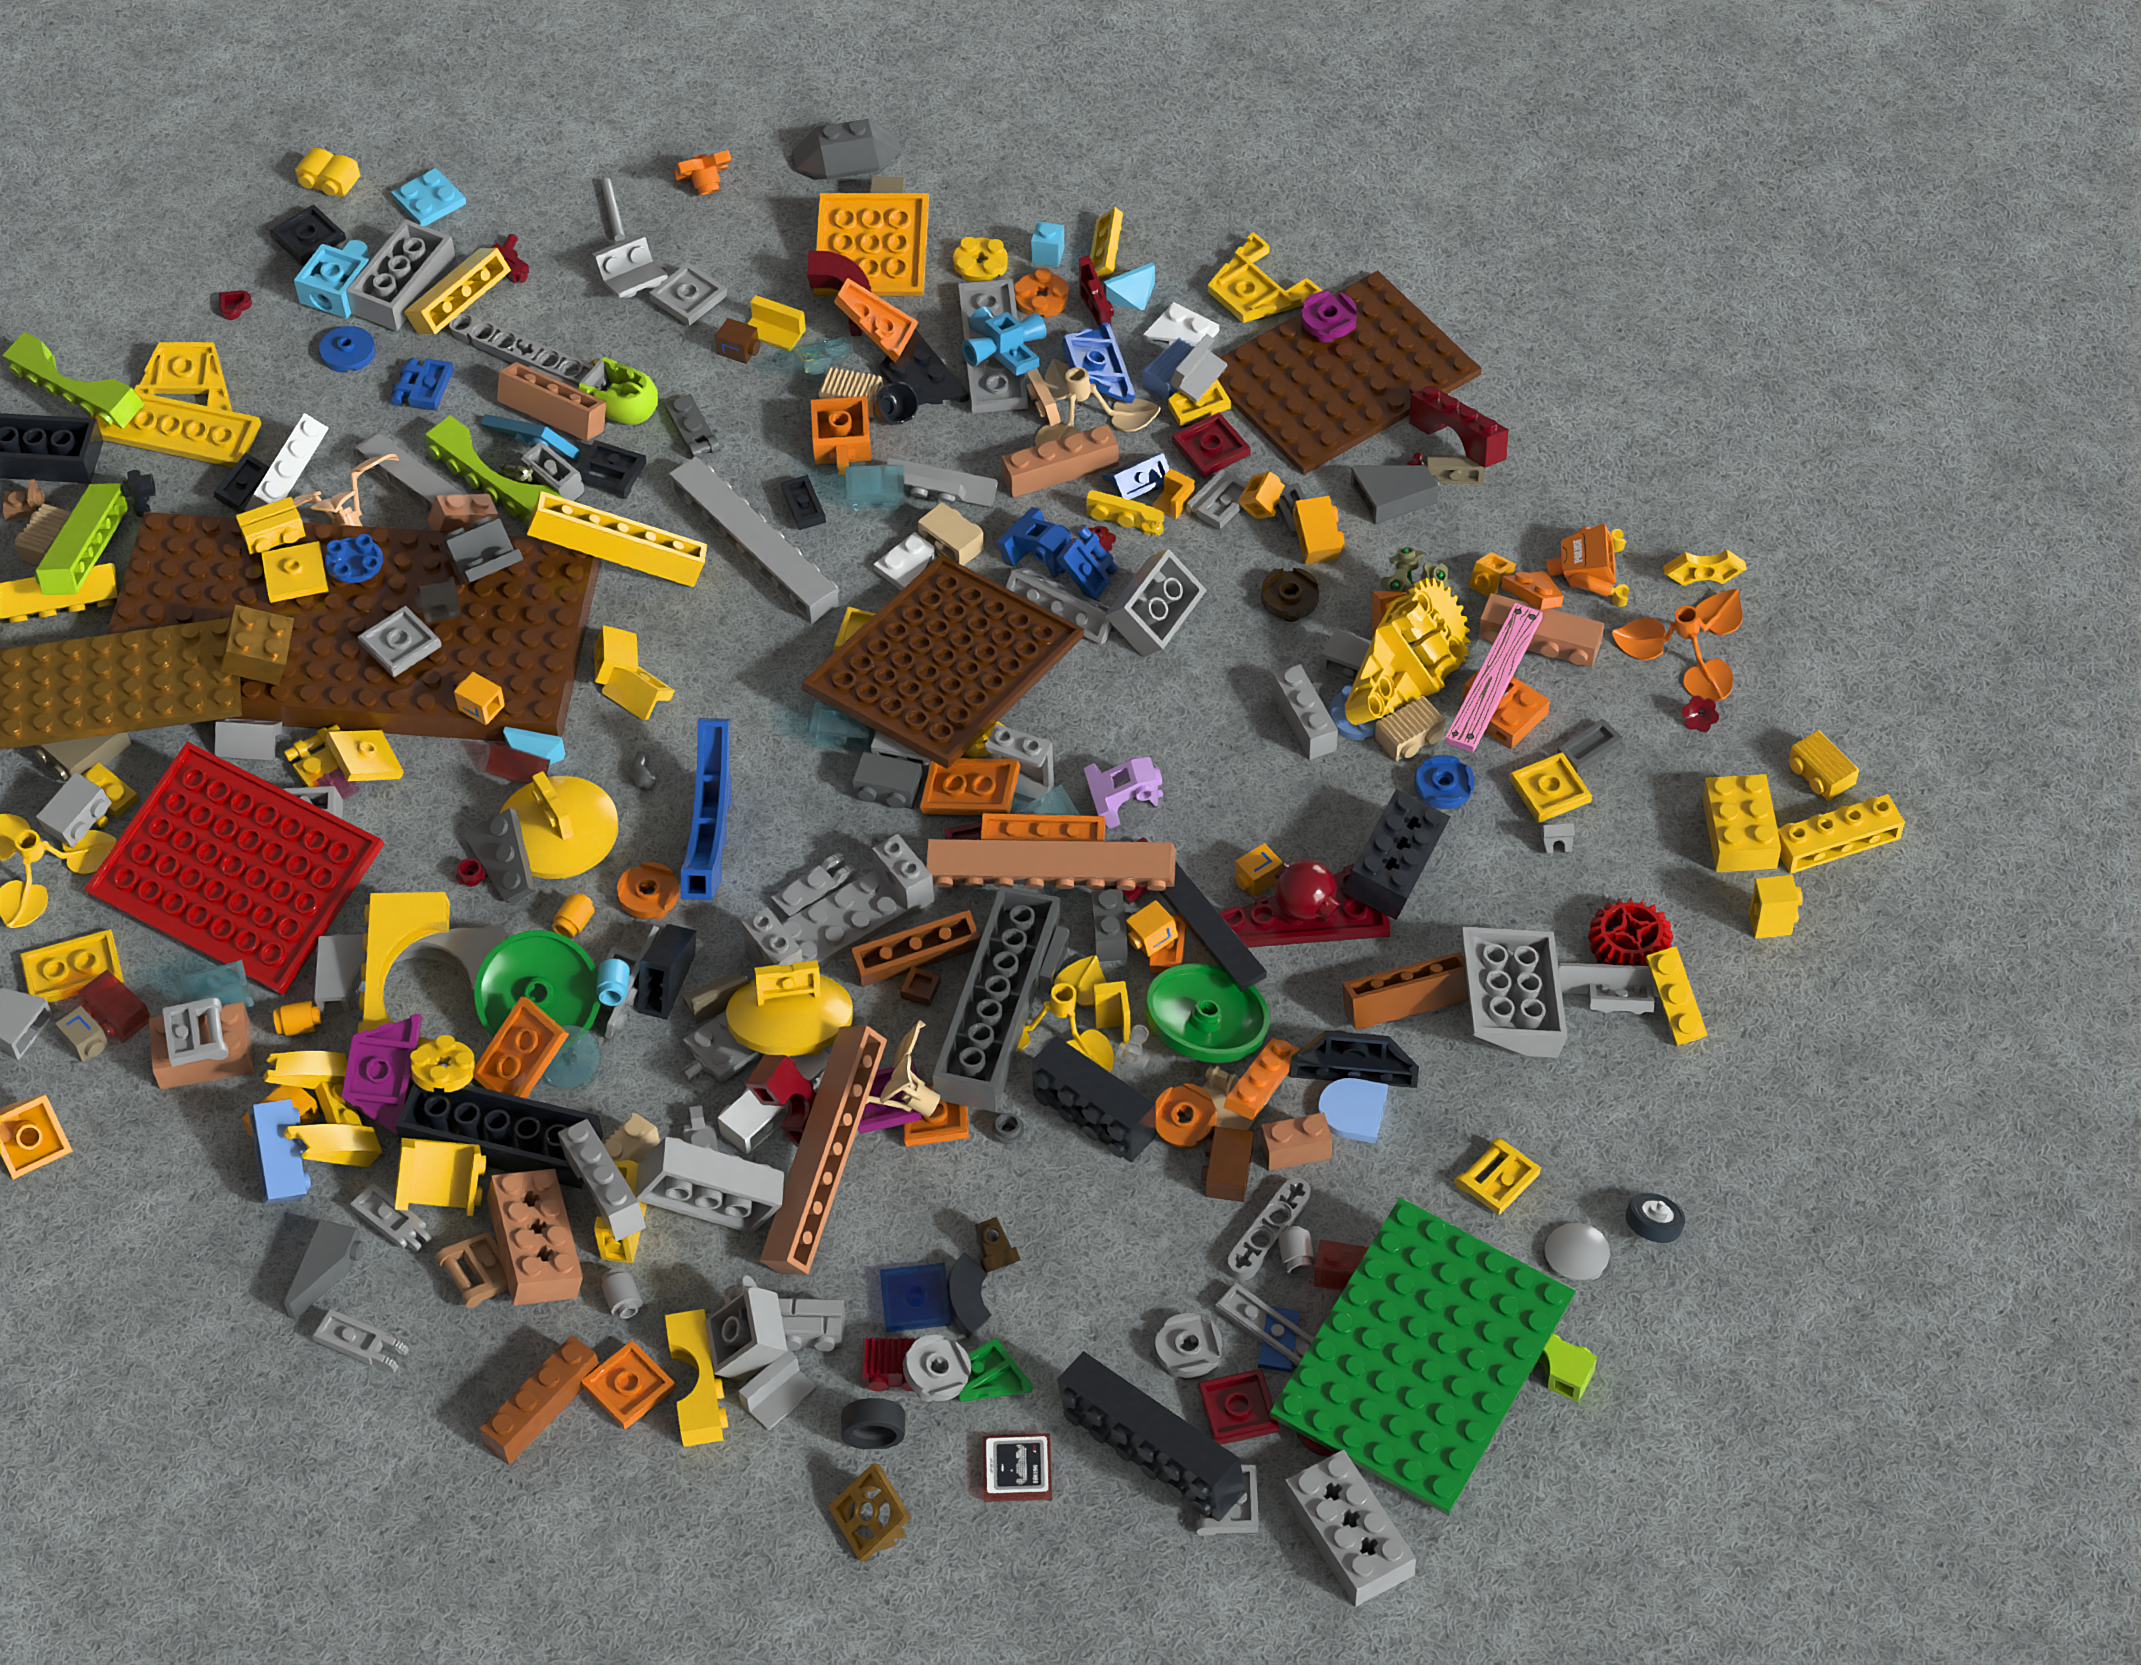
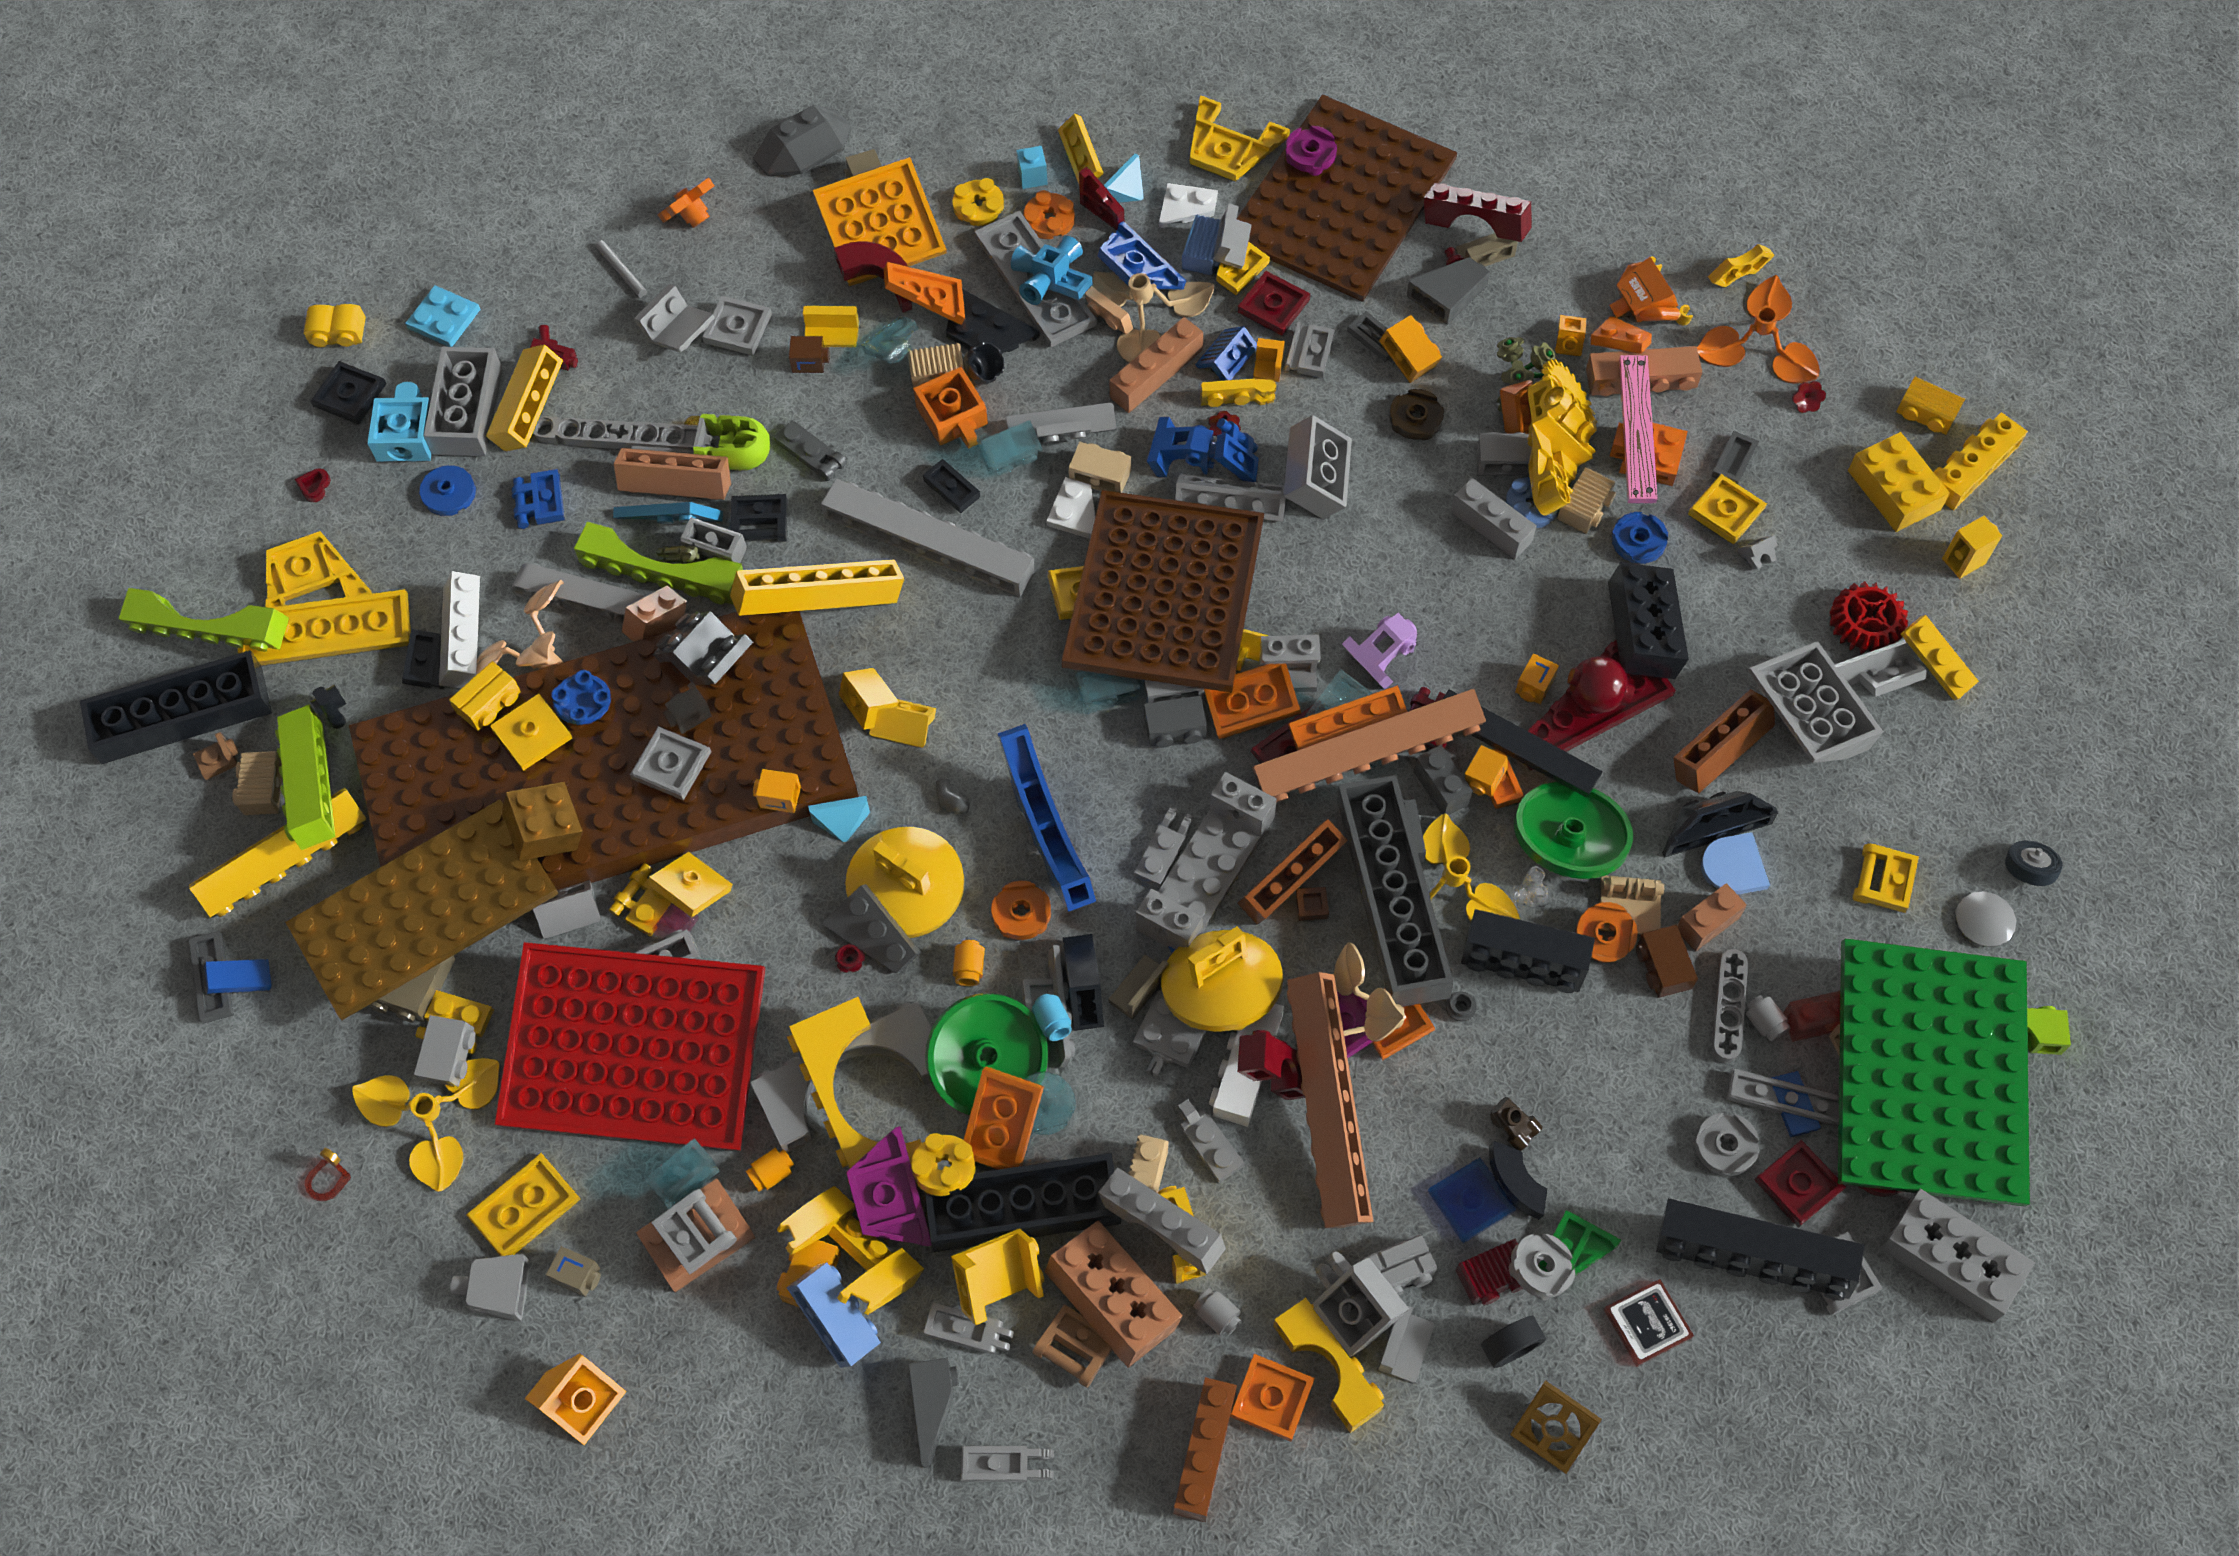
camera: 25 degrees left, 10 degrees up
(114, 1006) = (589, 1231): clear red brick -> none
(515, 763) = (835, 836): clear red tile -> none
(709, 1185) = (1254, 1180): light grey brick -> none
(1112, 1007) = (1500, 855): yellow panel -> none
(1261, 495) = (1346, 333): light orange brick -> none
(1261, 1079) = (1656, 873): orange plate -> none

